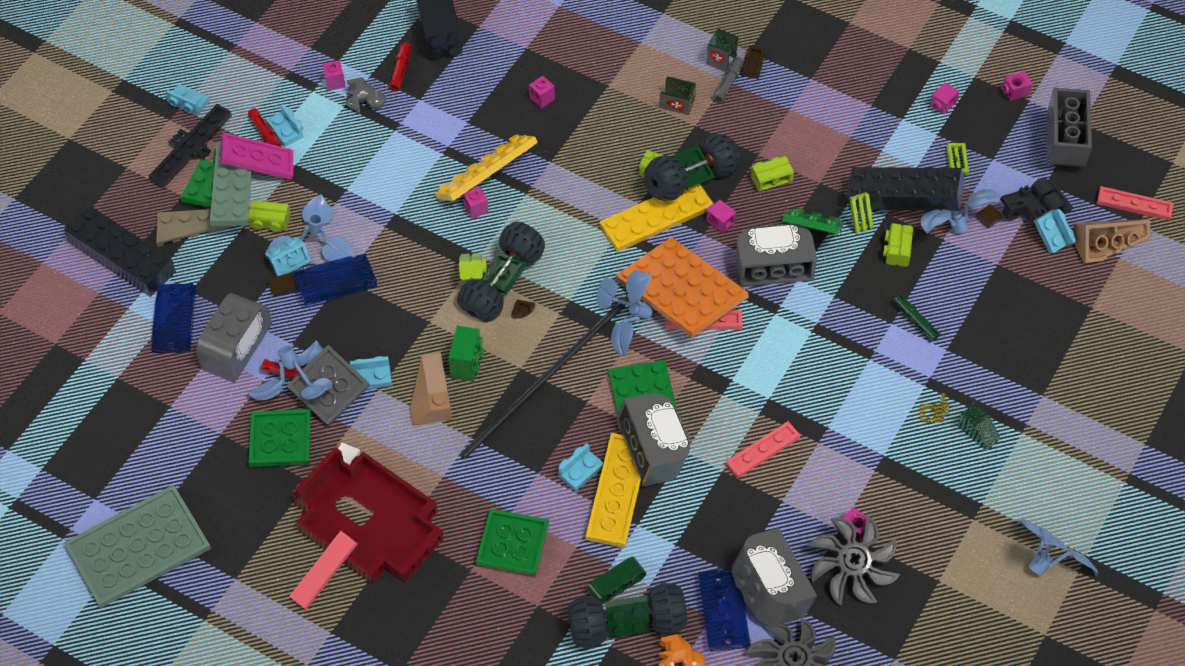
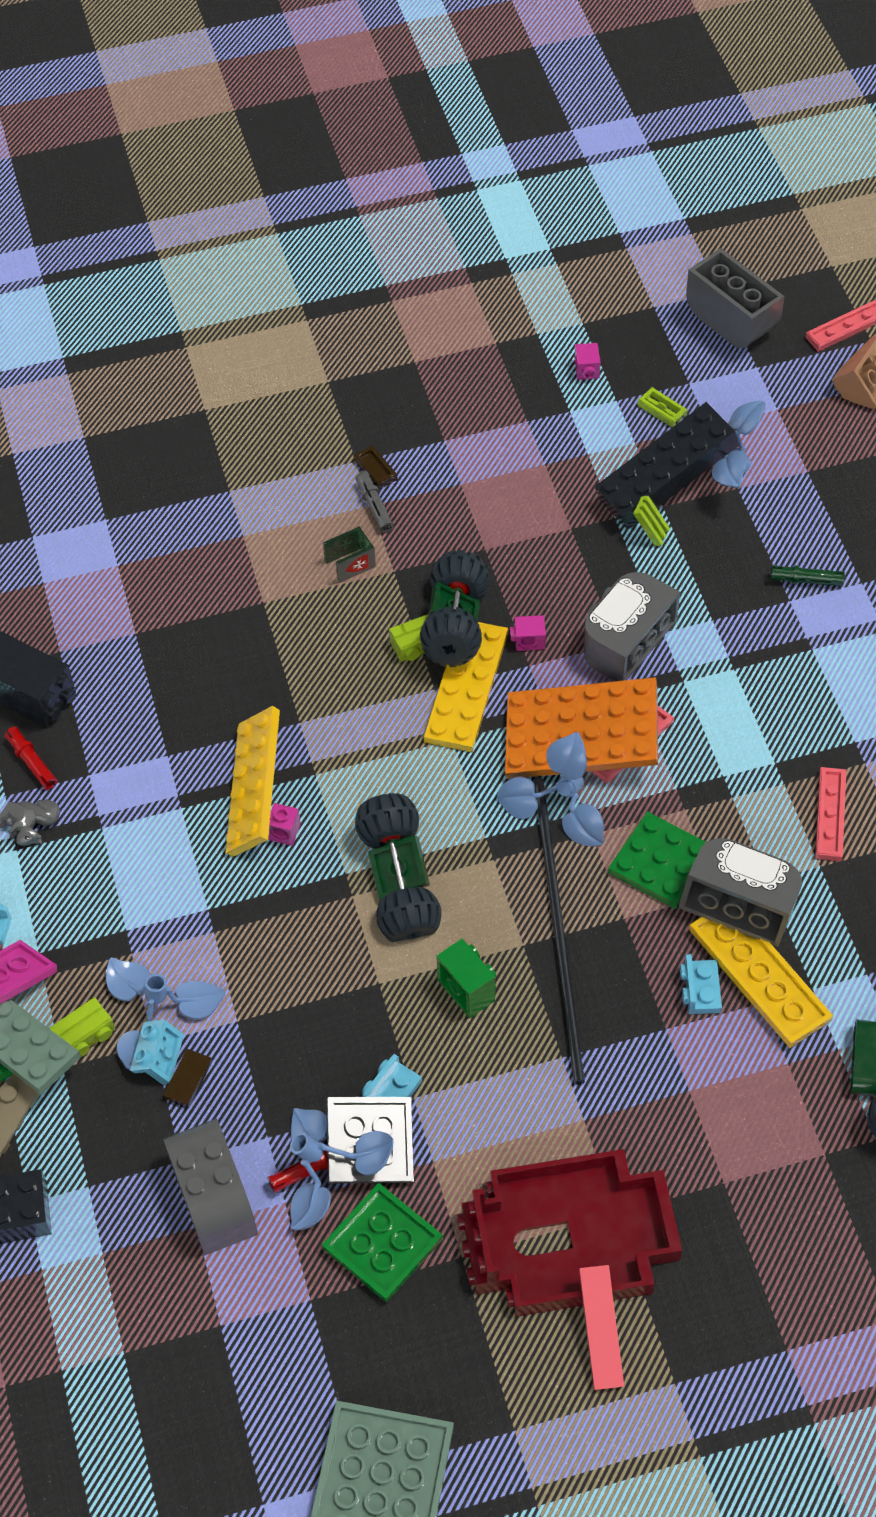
camera: 45 degrees left, 0 degrees up
(173, 318) = (109, 1231): clear blue piece -> none
(335, 279) = (235, 1029): clear blue piece -> none
(348, 452) = (463, 1189): white tile -> none
(430, 395) = (474, 1049): medium nougat wedge -> none
(472, 266) = (364, 888): lime brick -> none
(512, 542) = (732, 1117): green plate -> none
(522, 309) = (454, 886): dark brown tile -> none
(542, 92) = (212, 660): dark pink brick -> none
(720, 48) = (341, 475): piece -> none
(772, 173) = (525, 554): lime brick -> none
(813, 220) = (620, 565): green plate -> none
(899, 244) = (713, 523): lime brick -> none
(989, 216) = (754, 438): dark brown tile -> none
(1017, 86) = (633, 300): dark pink brick -> none
(1035, 201) = (780, 387): black plate -> none
(1054, 230) = (825, 398): medium azure bracket -> none

